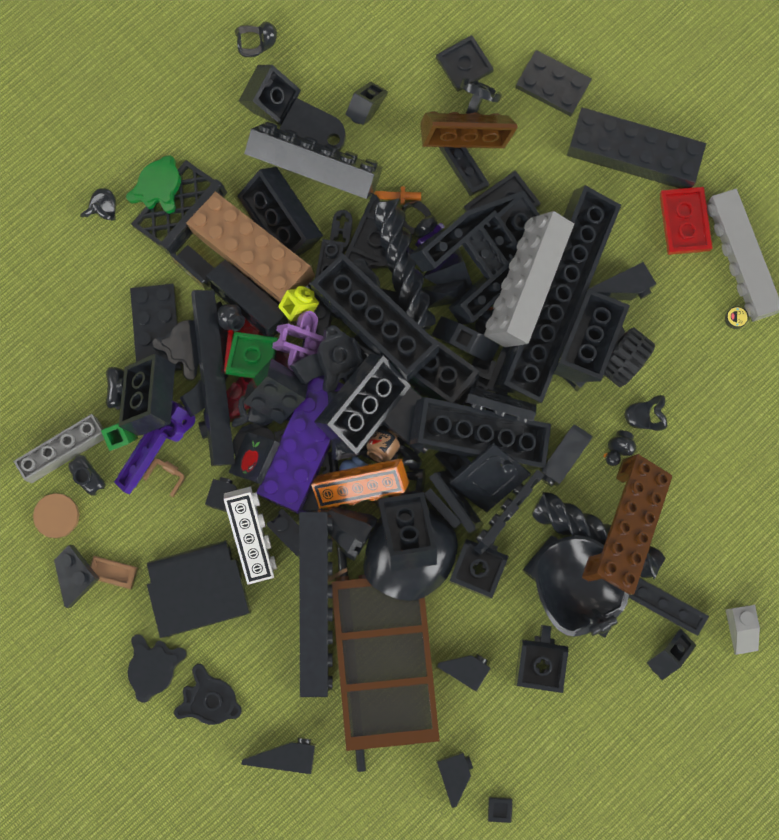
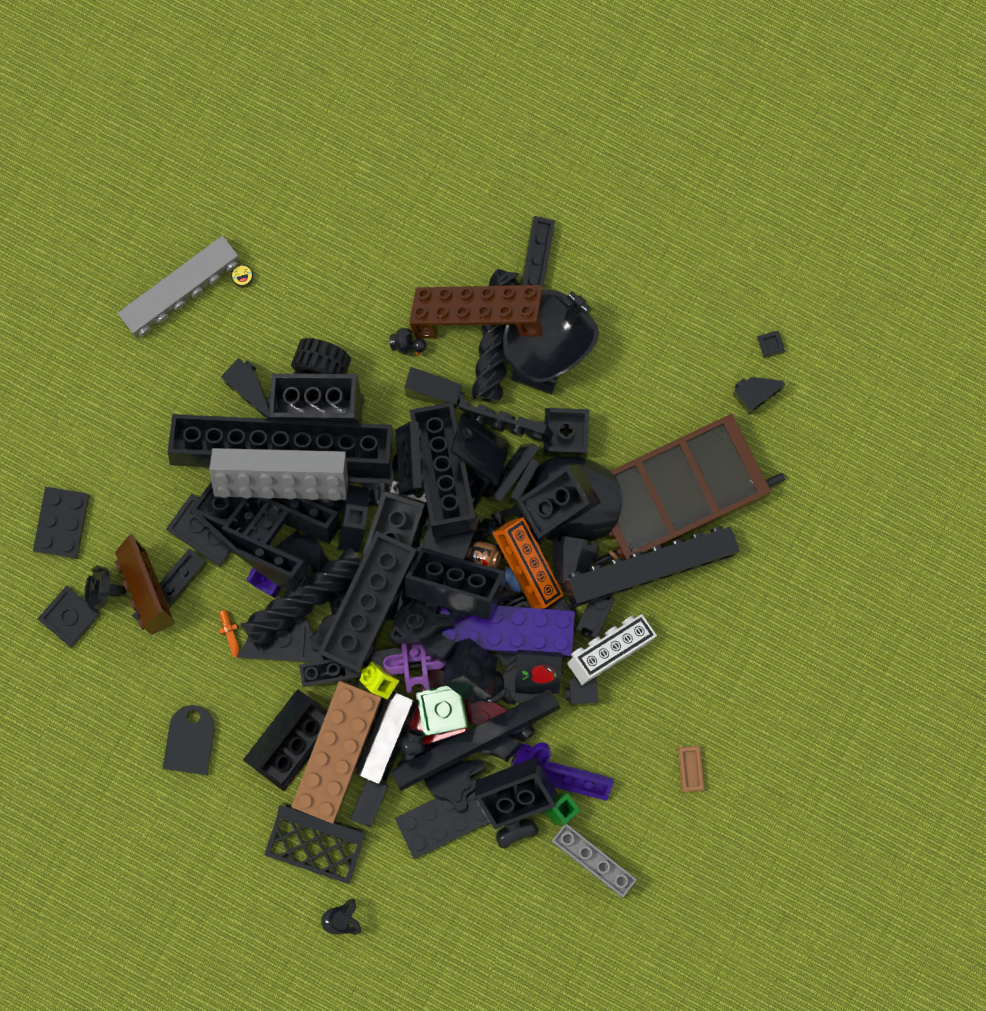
camera: 105 degrees left, 0 degrees up
(56, 515) = (658, 843): medium nougat tile -> none
(74, 575) = (706, 802): black wing -> none
(86, 475) = (610, 828): black piece -> none
(152, 668) = (764, 698): black tile -> none
(157, 184) = (299, 872): green tile -> none
(169, 468) = (574, 750): medium nougat piece -> none
(196, 589) = (677, 682): black piece -> none
(209, 700) = (772, 634): black tile -> none
(267, 34) = (103, 824): black piece -> none
(269, 94) = (168, 796): black slope -> none
(292, 757) = (795, 544): black slope -> none
(313, 159) = (226, 722): brick -> none
(347, 227) = (282, 670): black beam -> none
(365, 103) = (145, 696): black slope -> none
(426, 225) = (249, 591): black piece -> none
(467, 670) = (660, 413): black slope -> none
(553, 656) = (618, 351): black hinge -> none
(636, 149) = (106, 420): black brick -> none
(638, 414) = (370, 335): black piece -> none
(671, 654) = (580, 238): black slope -> none
(685, 220) = (162, 351): red plate -> none
(744, 628) = (533, 183): light grey slope -> none

